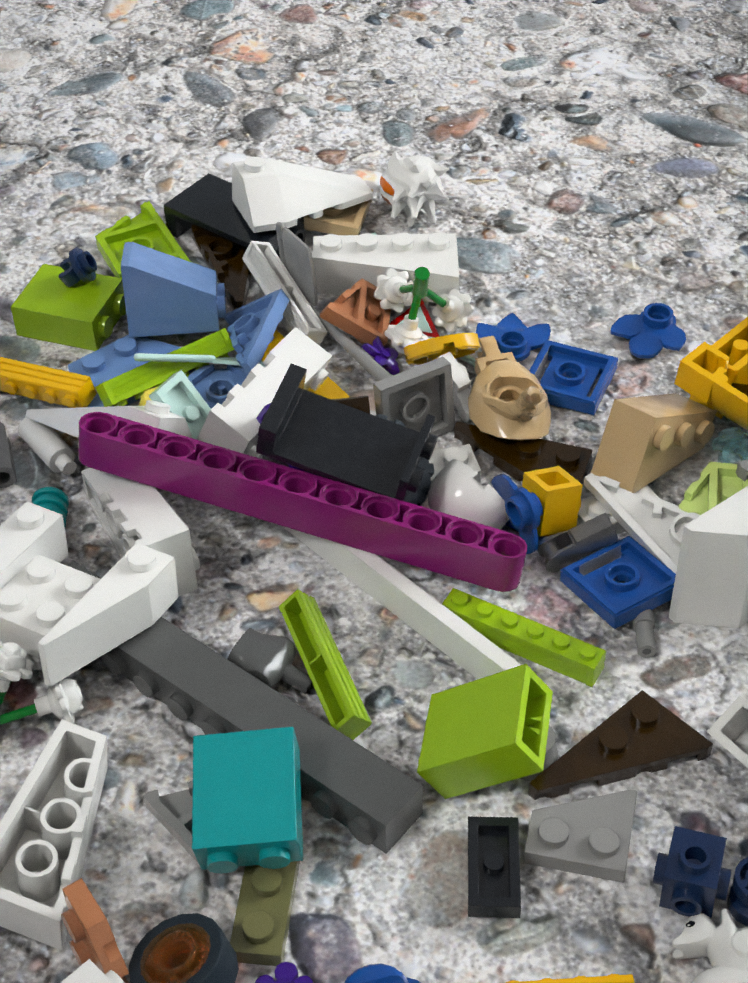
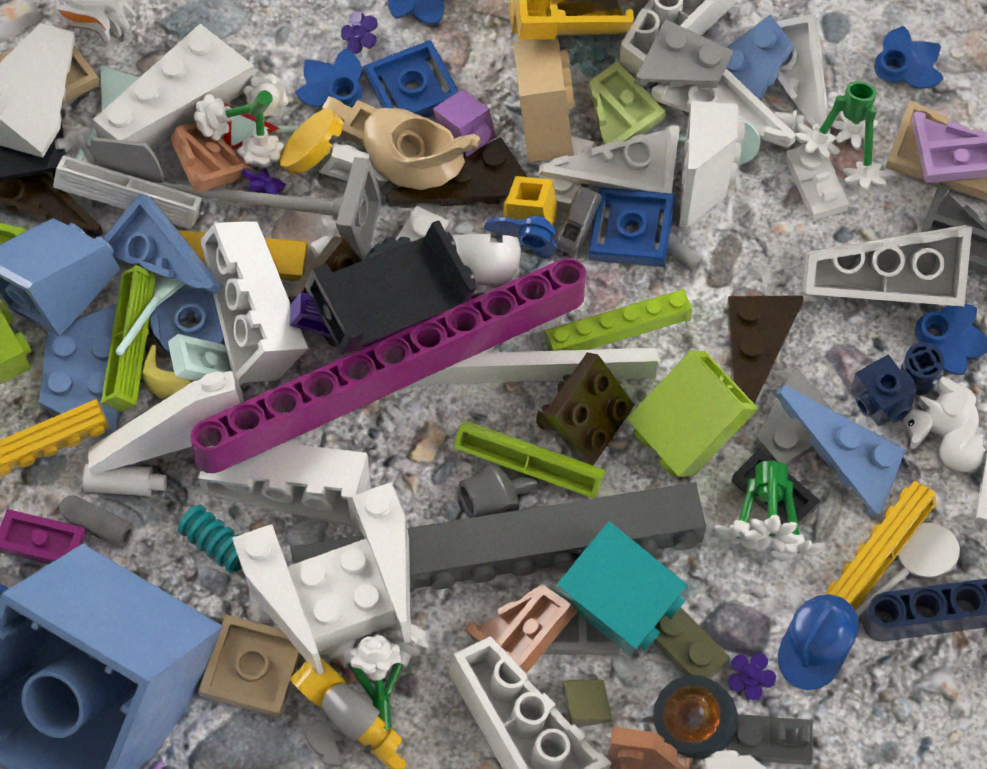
camera: 50 degrees left, 20 degrees up
(125, 873) = (586, 702): none -> olive slope
(145, 769) = (527, 625): none -> nougat wing
(407, 659) = (587, 409): none -> dark brown plate
(482, 846) = (771, 486): none -> plant
(570, 322) = (359, 34): none -> dark purple plant
(572, 417) = (466, 116): none -> medium lavender brick
(604, 908) = (855, 453): none -> medium blue wing

